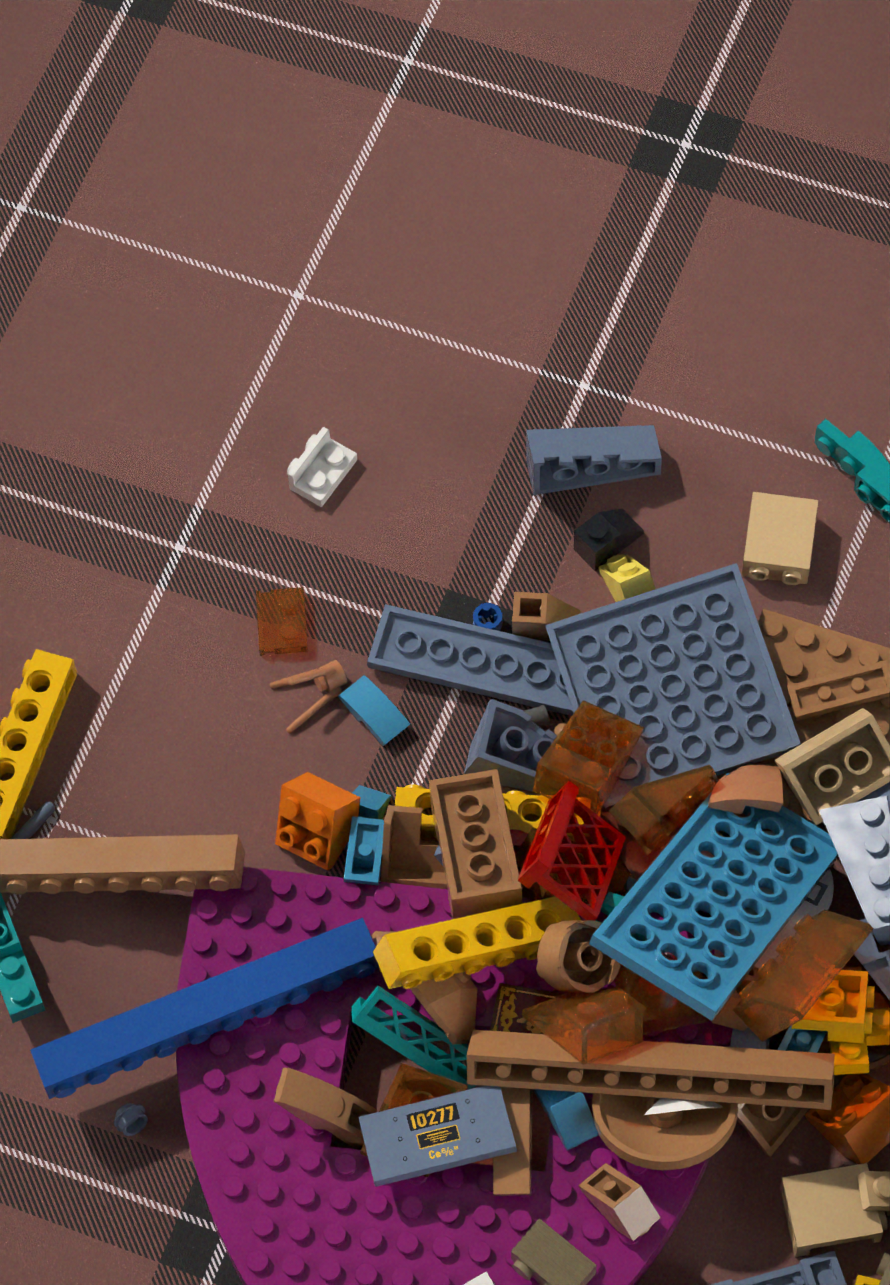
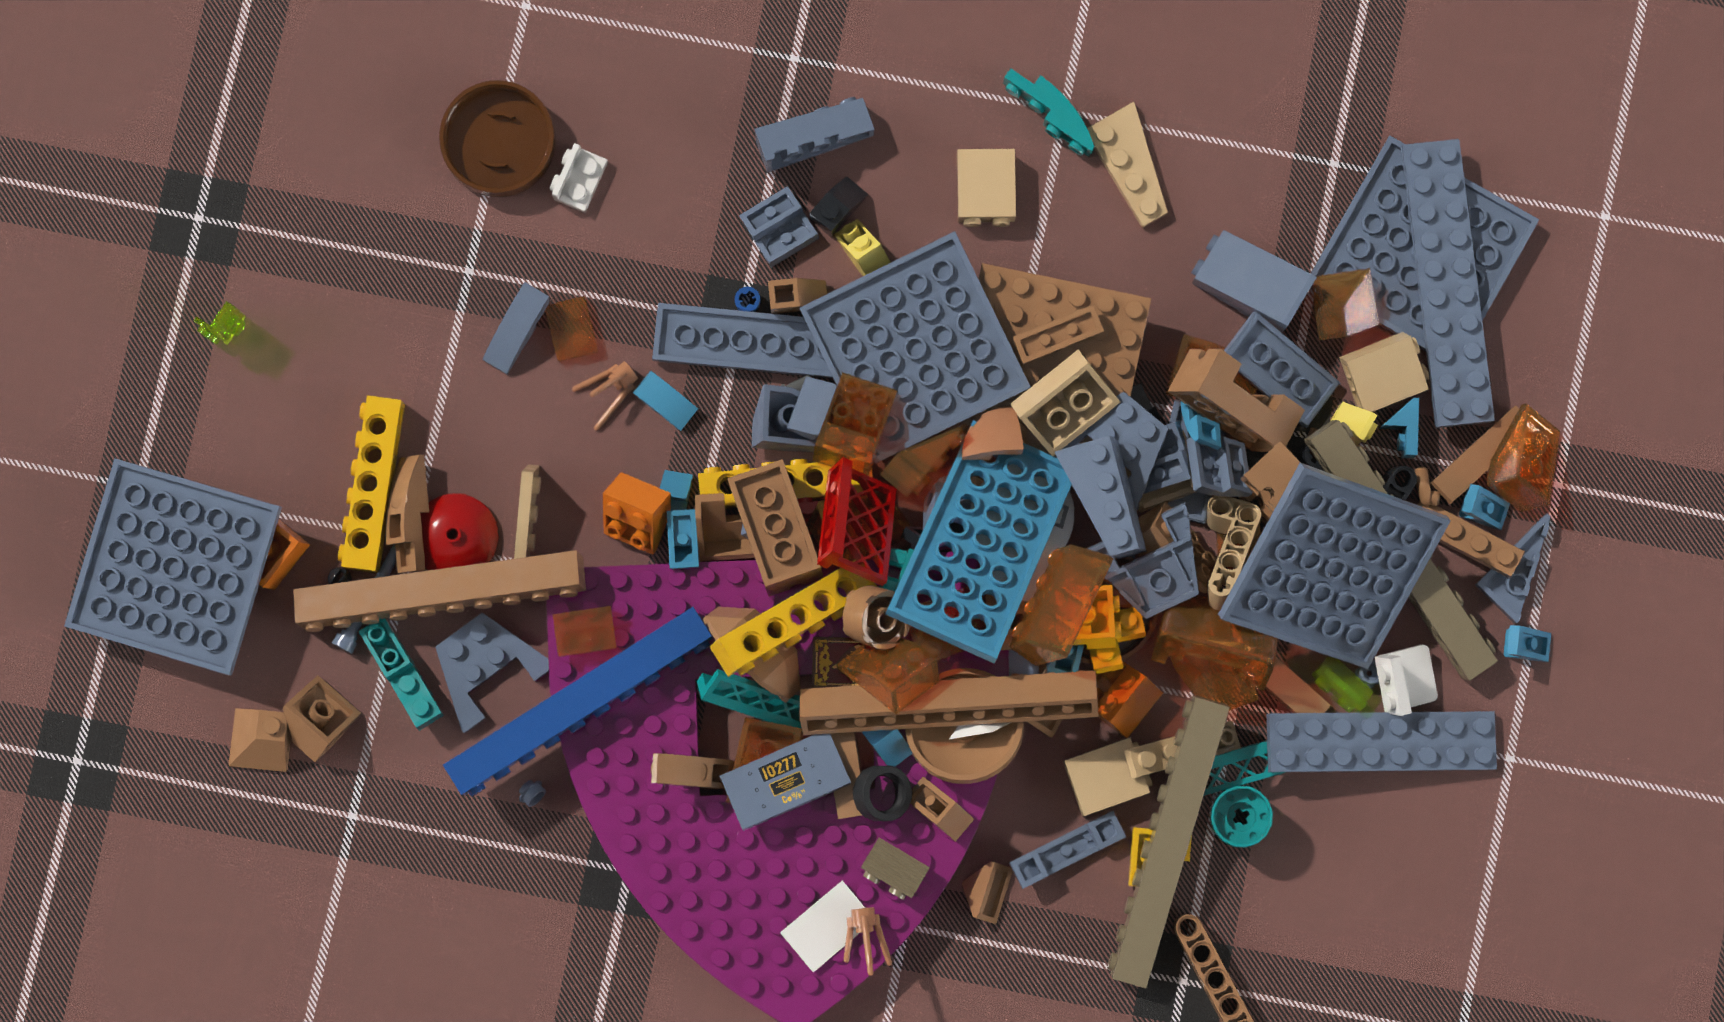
camera: 15 degrees left, 20 degrees up
(53, 772) = (403, 520): none -> medium nougat slope
(100, 954) = (476, 655): none -> sand blue wing
(125, 804) = (475, 526): none -> red dish
(192, 792) = (527, 511): none -> tan wing
(220, 607) = (516, 328): none -> sand blue slope
(229, 931) = (584, 631): none -> clear orange plate
(239, 414) = (497, 138): none -> reddish brown piece
(537, 549) = (779, 226): none -> sand blue slope
(539, 733) = (811, 407): none -> sand blue slope
(573, 1155) = (903, 793): none -> black tyre

